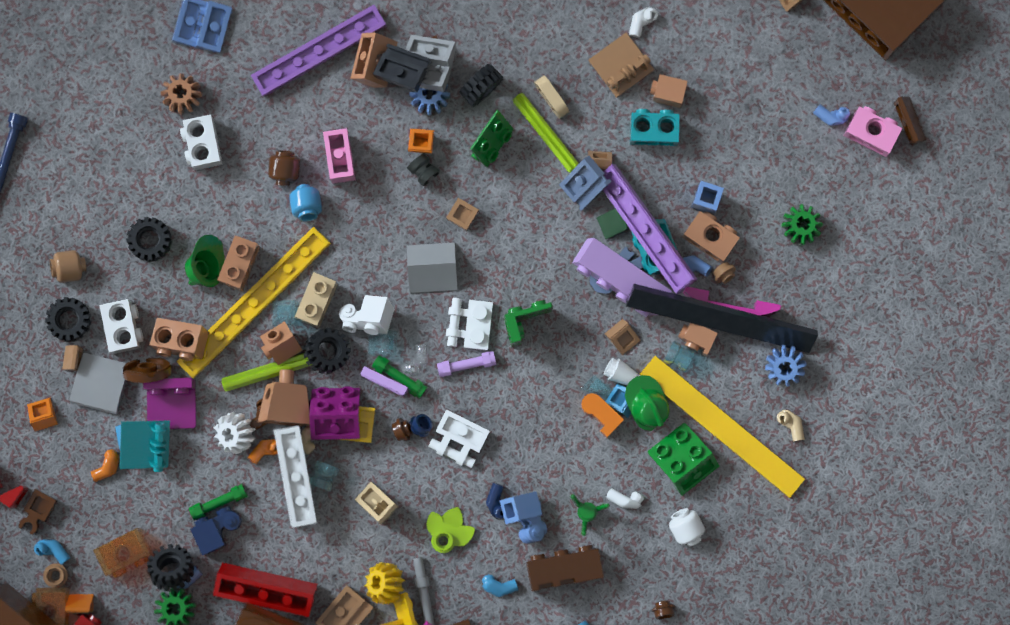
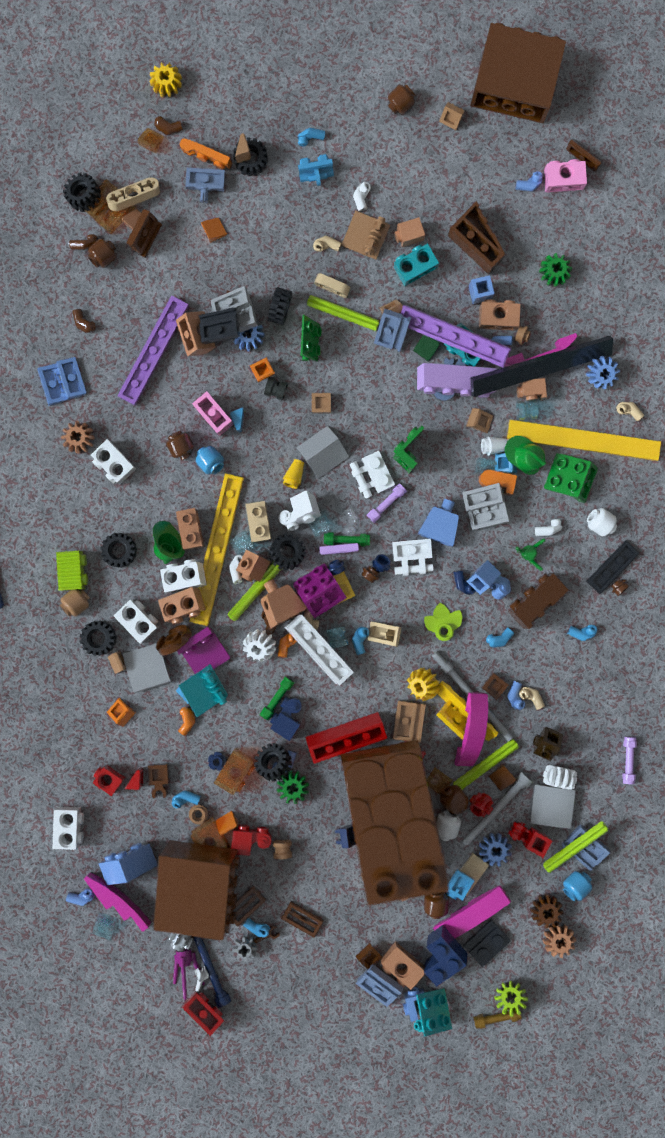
camera: 30 degrees left, 5 degrees up
(85, 230) = (71, 570): none -> lime brick
(107, 525) = (217, 756): none -> dark blue plate
(198, 312) = (183, 579): none -> white brick
(257, 342) = (236, 575): none -> white arm
(345, 492) = (358, 639): none -> dark azure arm
(362, 177) = (237, 418): none -> dark azure slope
(369, 399) = (336, 567): none -> dark blue plate
(385, 273) = (294, 474): none -> yellow cone
(510, 422) = (441, 524): none -> medium blue torso
(570, 433) = (486, 506): none -> light grey slope
(573, 47) = (326, 242): none -> tan arm
(669, 583) = (612, 567): none -> black tile
(735, 140) = (476, 239): none -> reddish brown wedge

